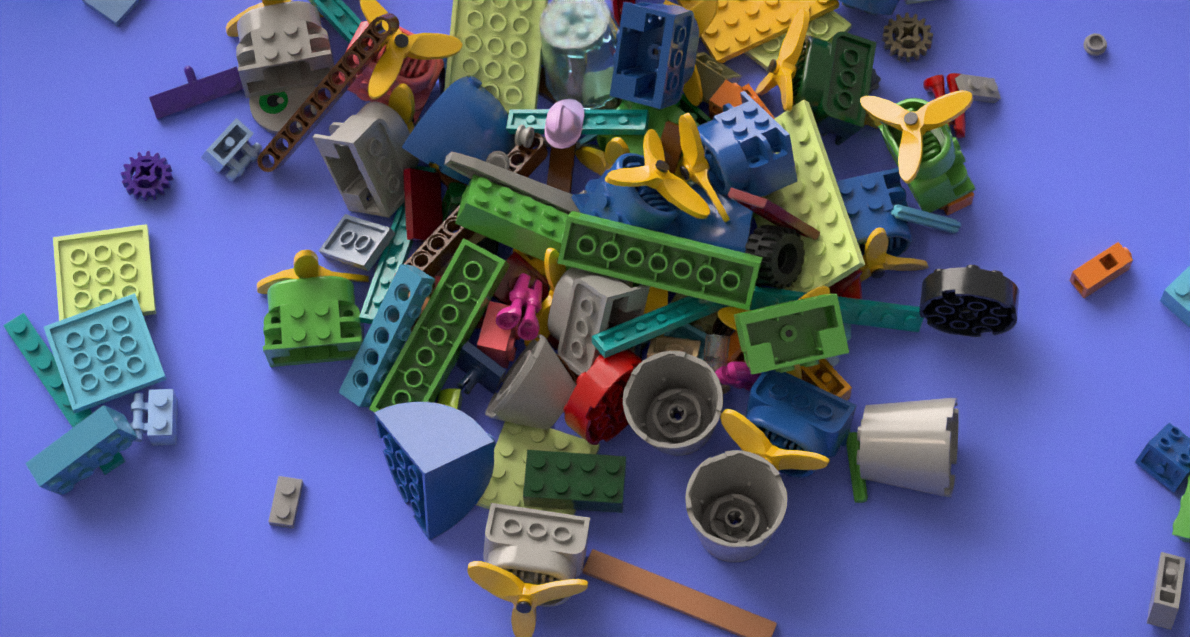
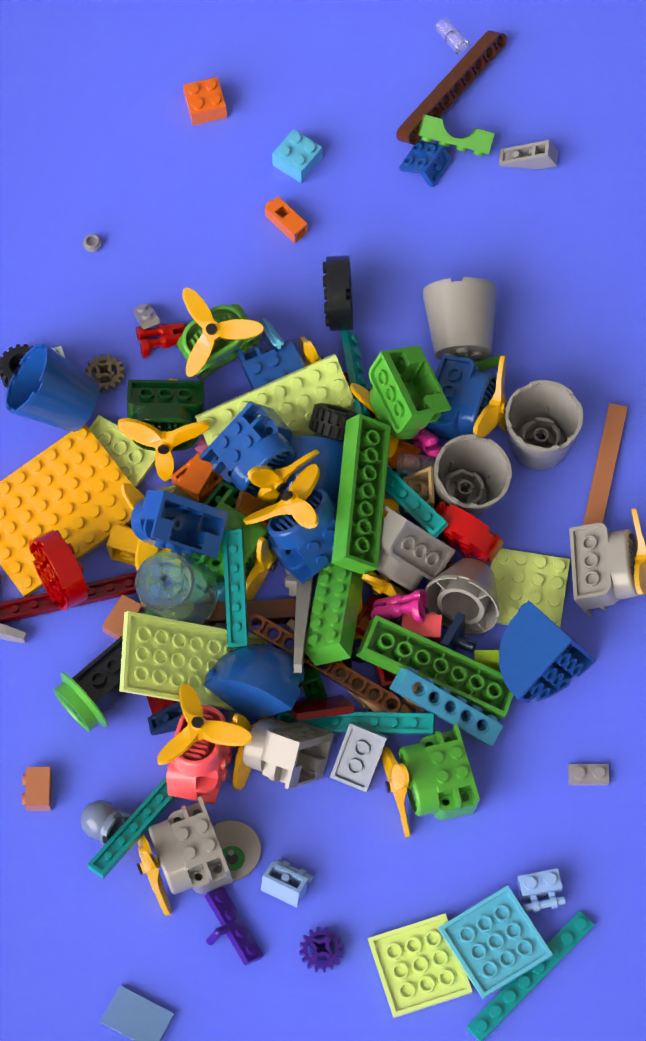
camera: 100 degrees left, 0 degrees up
(81, 450) = (590, 935): dark azure brick -> none
(334, 85) = (241, 787): reddish brown beam -> none
(499, 159) = (283, 643): light grey plate -> none
(524, 136) = (255, 626): light grey bush -> none
(564, 123) = (239, 597): lavender piece -> none
(574, 481) = (534, 552): dark green brick -> none
(773, 213) = (308, 417): dark red tile -> none

